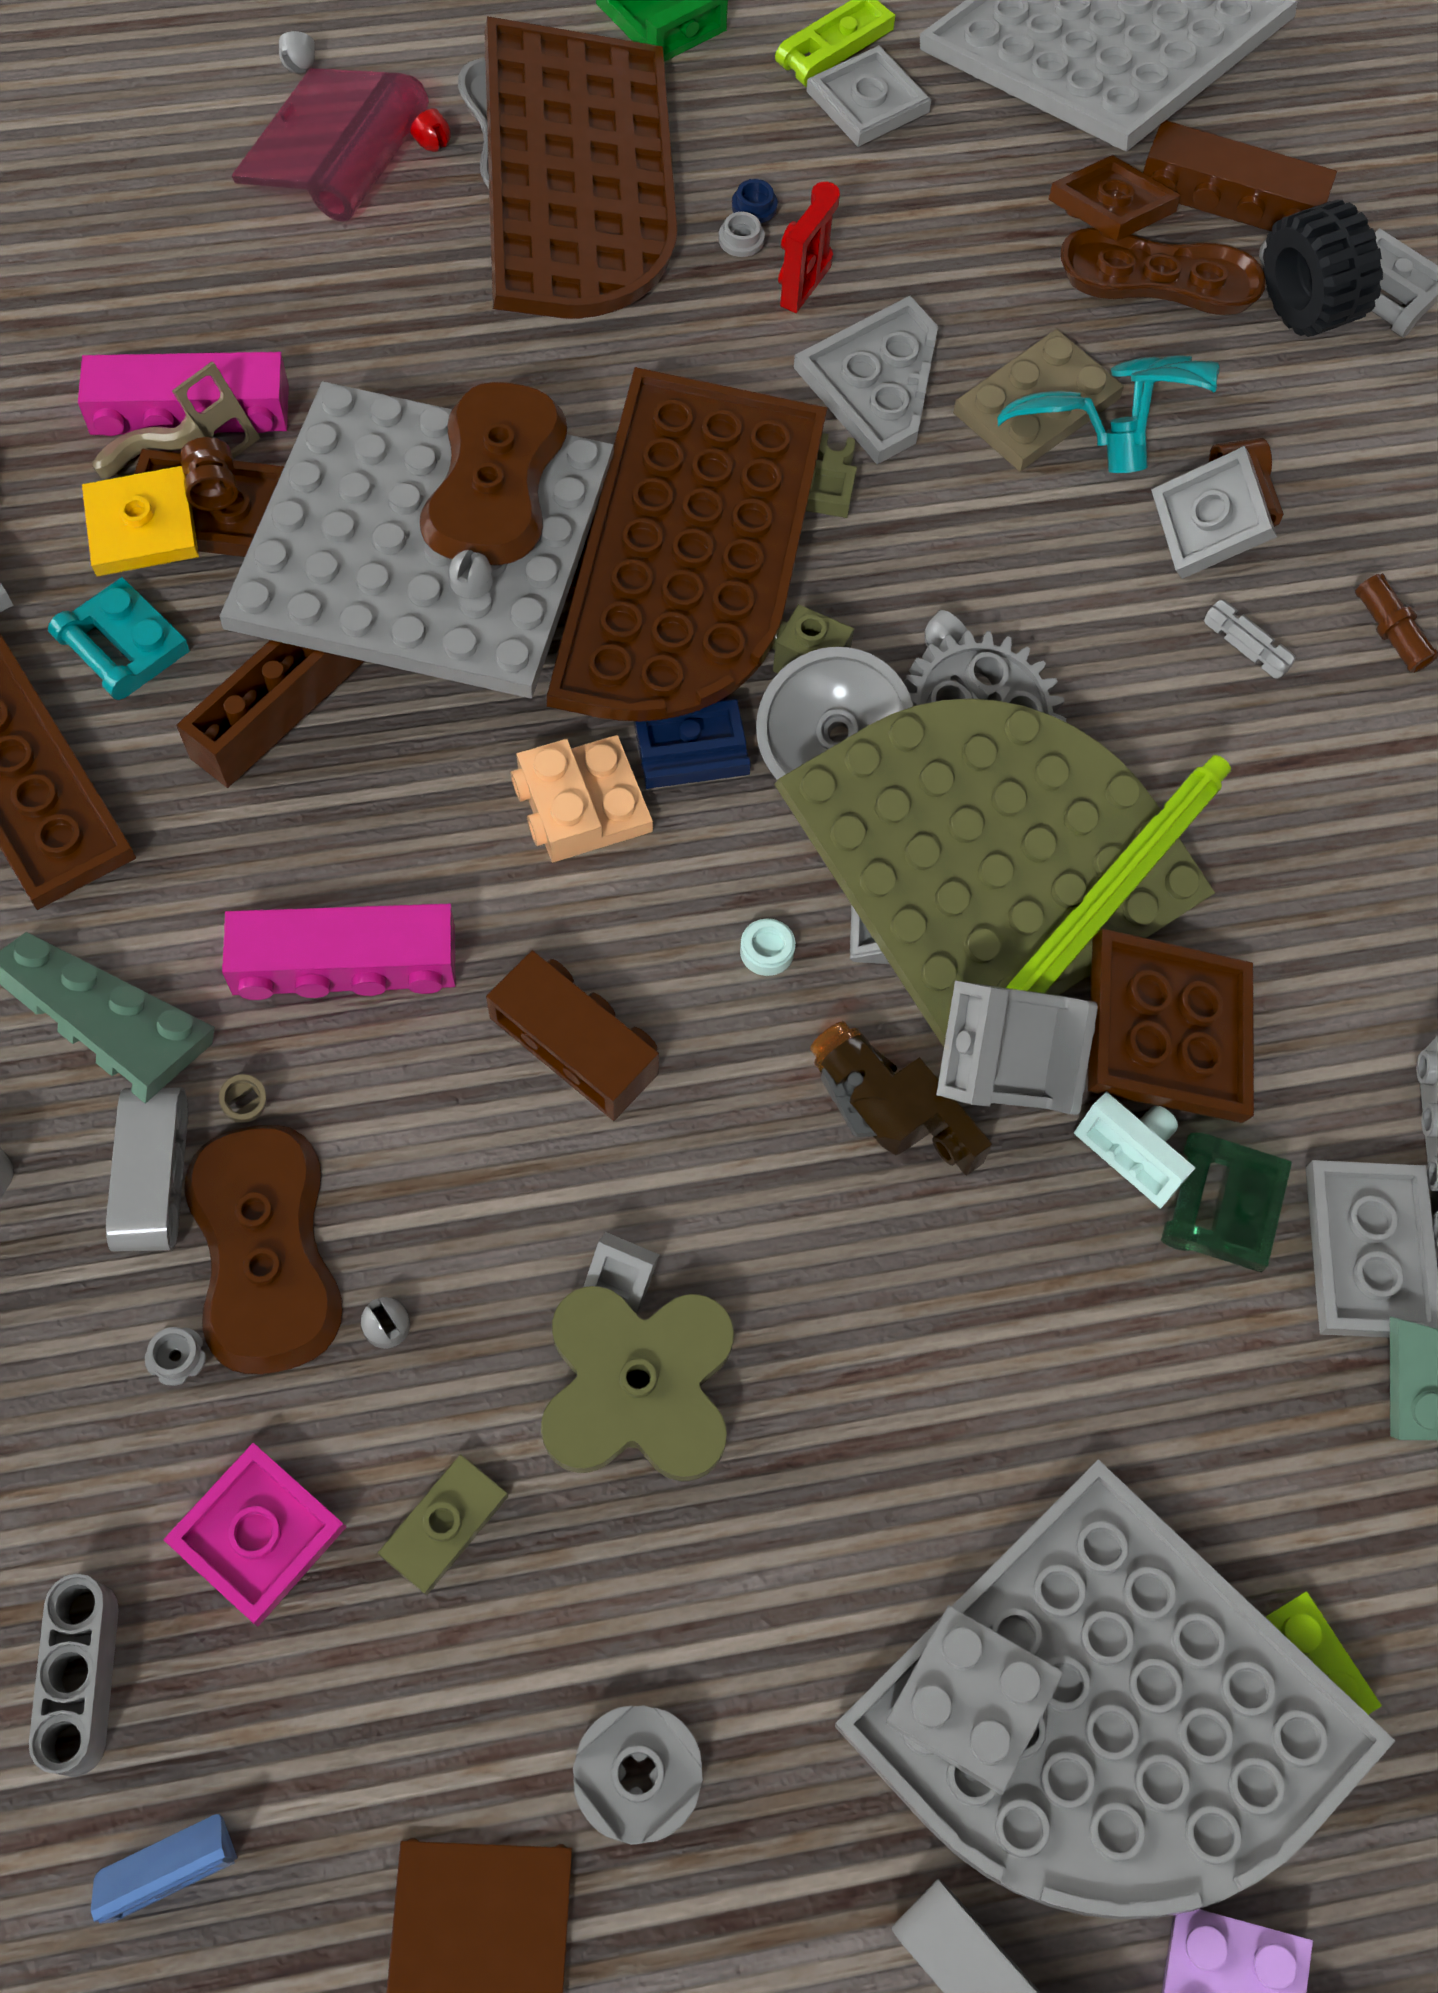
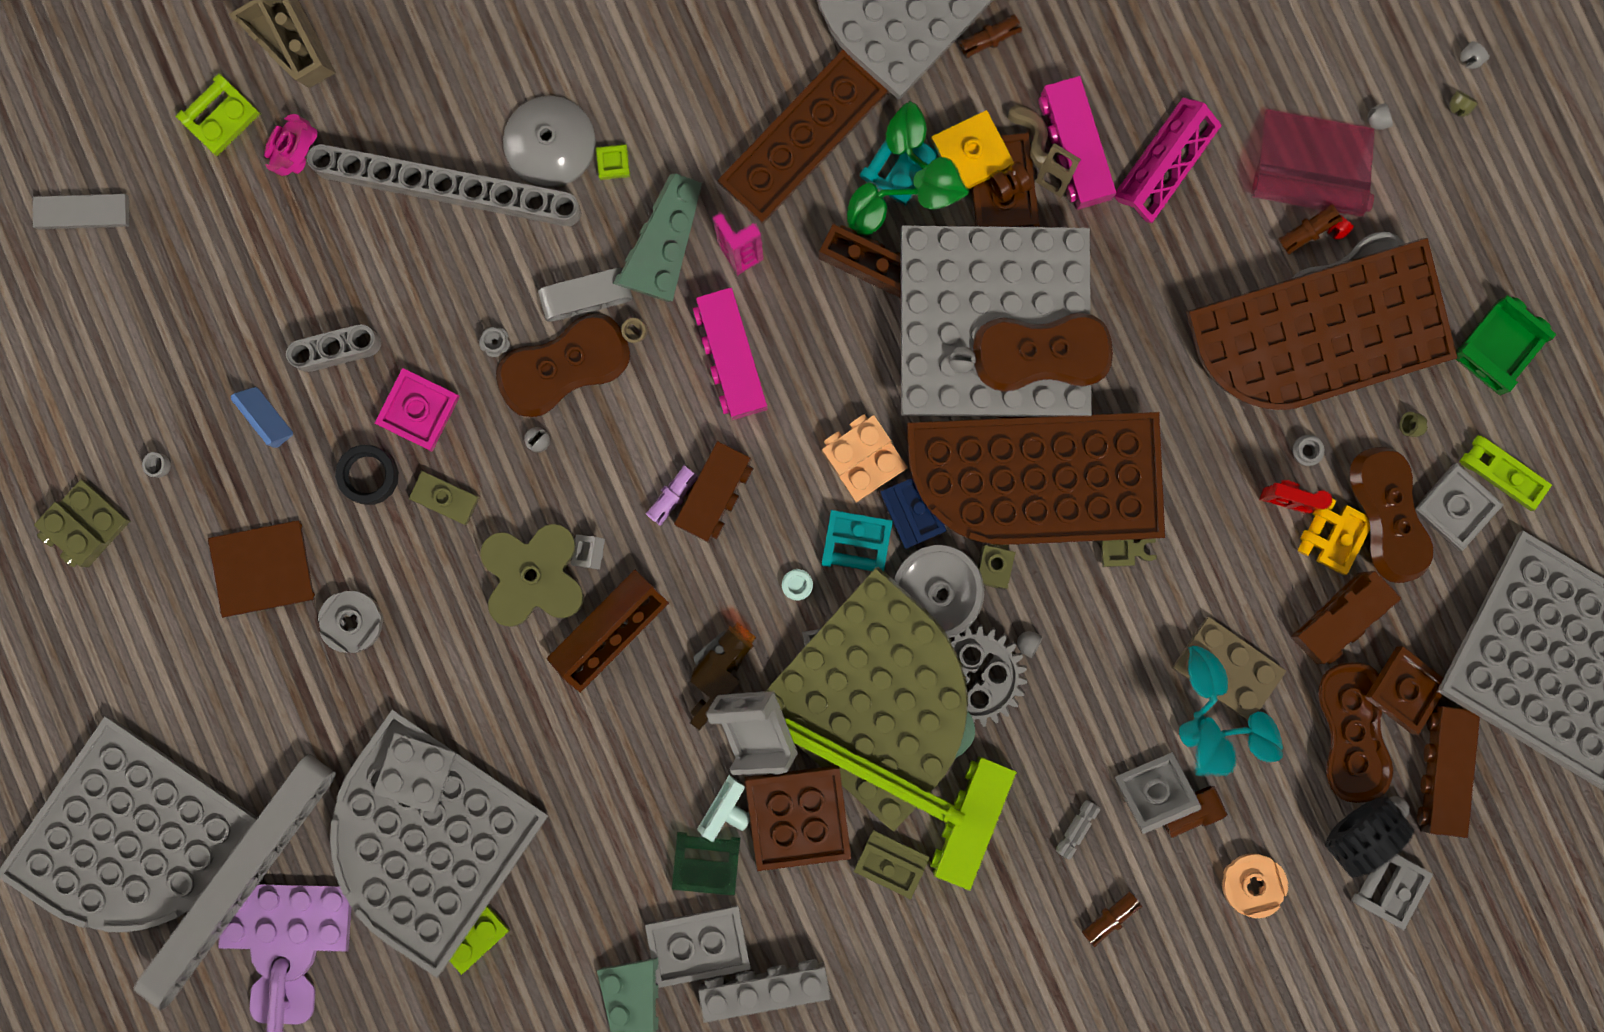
camera: 80 degrees right, 20 degrees up
(166, 863) = (740, 249): none -> dark pink fence
(177, 531) = (935, 185): none -> green plant
(253, 295) = (1164, 154): none -> dark pink fence
(305, 1650) = (352, 455): none -> black tyre
(424, 154) = (1310, 229): none -> reddish brown pin
(558, 1105) = (672, 495): none -> lavender pin
(704, 829) = (858, 532): none -> teal plate
(731, 115) = (1413, 418): none -> olive hinge
(755, 198) = (1339, 452): dark blue plate -> none
(776, 1266) = (607, 631): none -> reddish brown brick
(875, 376) = (1215, 562): light grey plate -> none
(882, 223) = (1343, 541): none -> yellow plate
(892, 160) = (1398, 539): none -> reddish brown plate
(993, 233) = (1345, 617): none -> reddish brown wedge
(1259, 795) = (982, 806): none -> lime brick
(1269, 908) = (891, 864): none -> olive plate
(1361, 458) = (1270, 895): none -> light nougat plate

